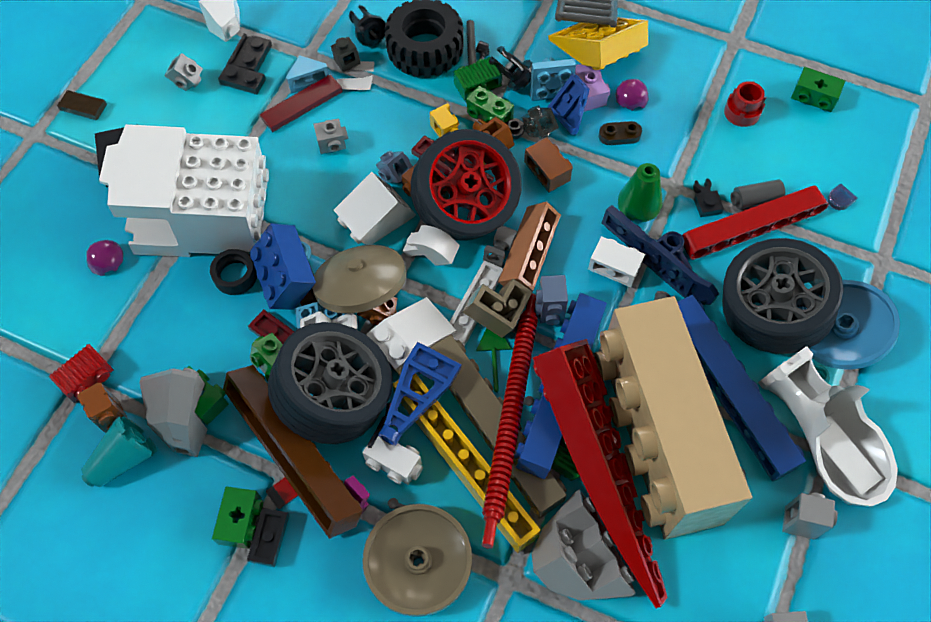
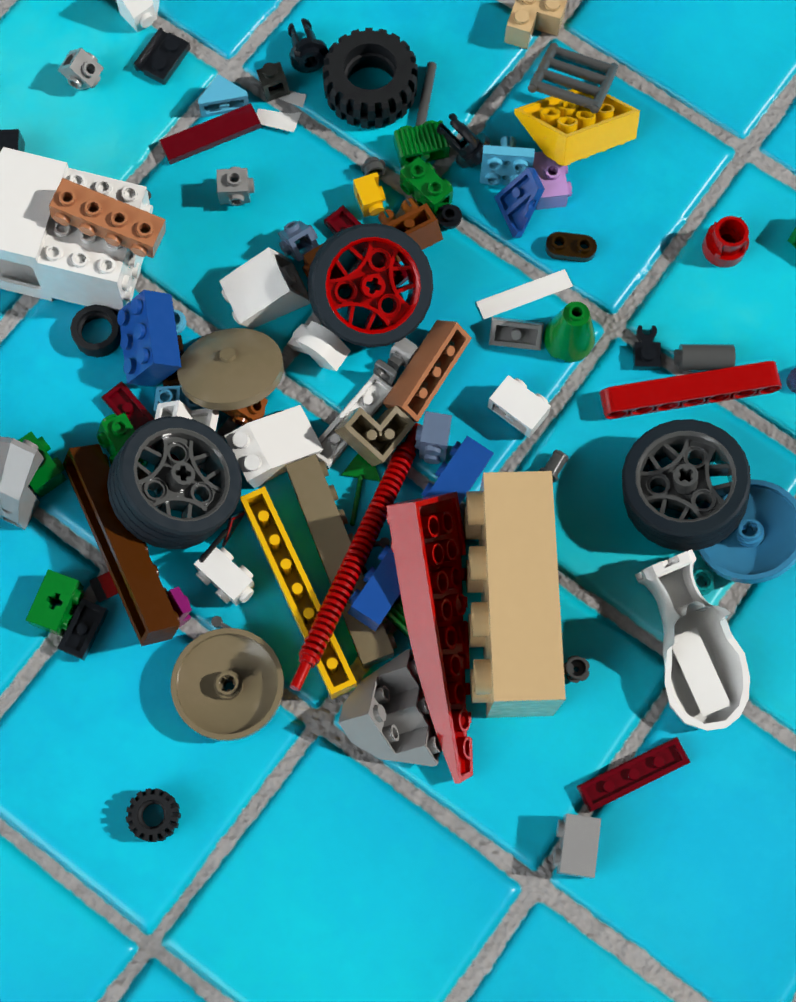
camera: 10 degrees right, 10 degrees up
(228, 163) = (107, 218): none -> nougat brick
(242, 79) = (147, 88): black plate -> none
(433, 366) = (285, 487): blue plate -> none
(441, 100) = (373, 165): none -> dark grey plate
(483, 49) = (439, 106): black hand -> none
(539, 122) = (478, 217): clear smoke brick -> none
(548, 164) = (474, 272): dark orange brick -> none
(592, 176) = (524, 294): none -> white sticker
(592, 206) = (516, 333): none -> light grey slope
(632, 94) = (598, 200): magenta hair -> none
(662, 256) = (576, 416): dark blue piece -> none
(740, 395) = (605, 573): blue brick -> none
(809, 515) = (638, 726): light grey brick -> none
(814, 564) = (633, 774): none -> dark red tile

